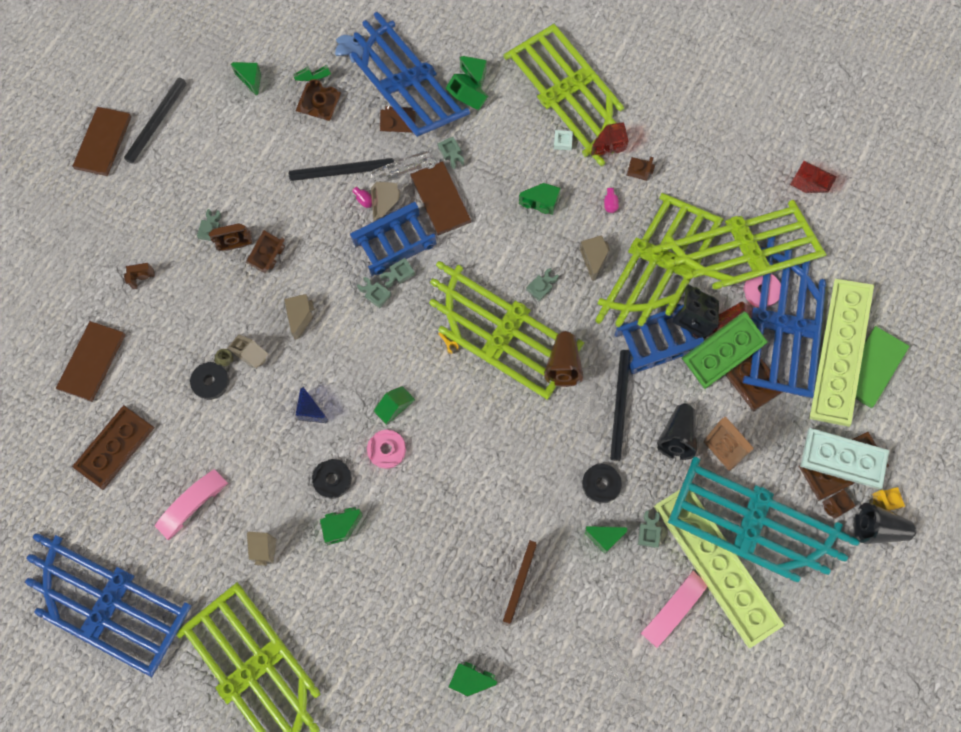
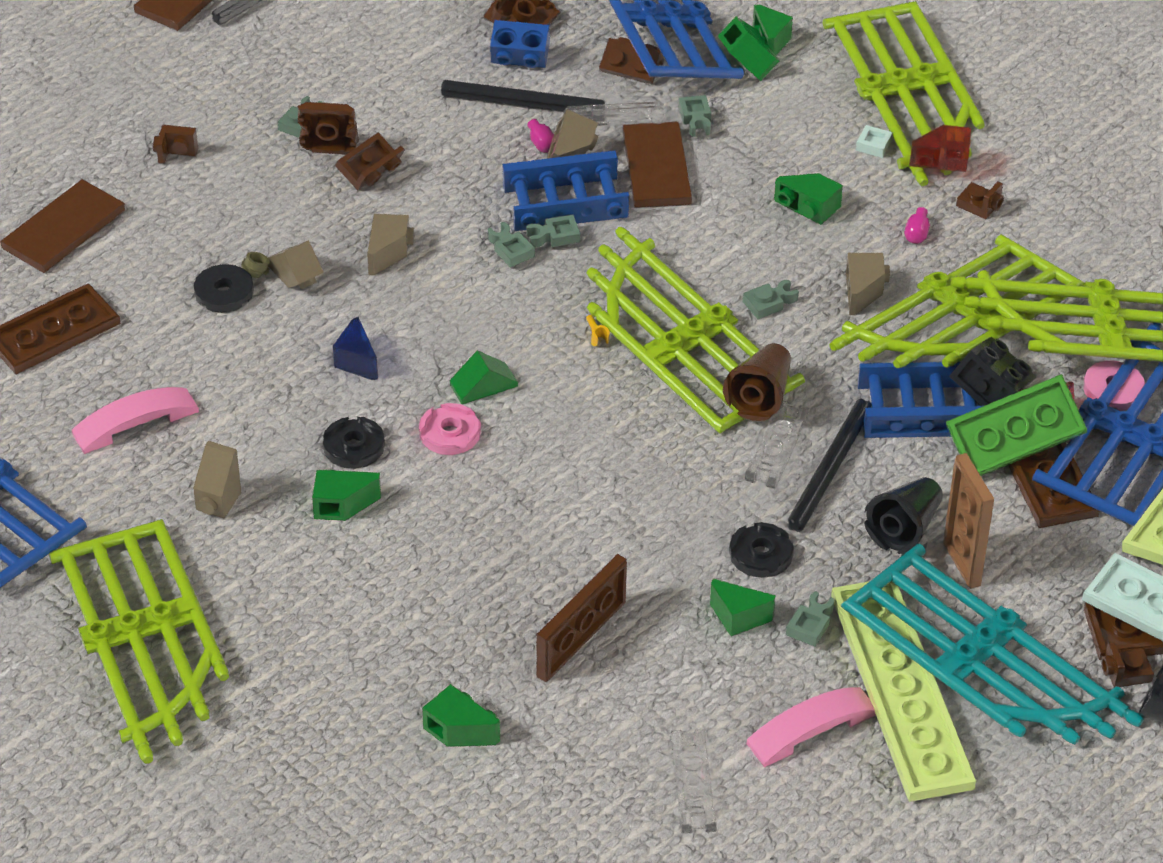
camera: 15 degrees right, 25 degrees down
(326, 123) = (520, 44): none -> blue brick

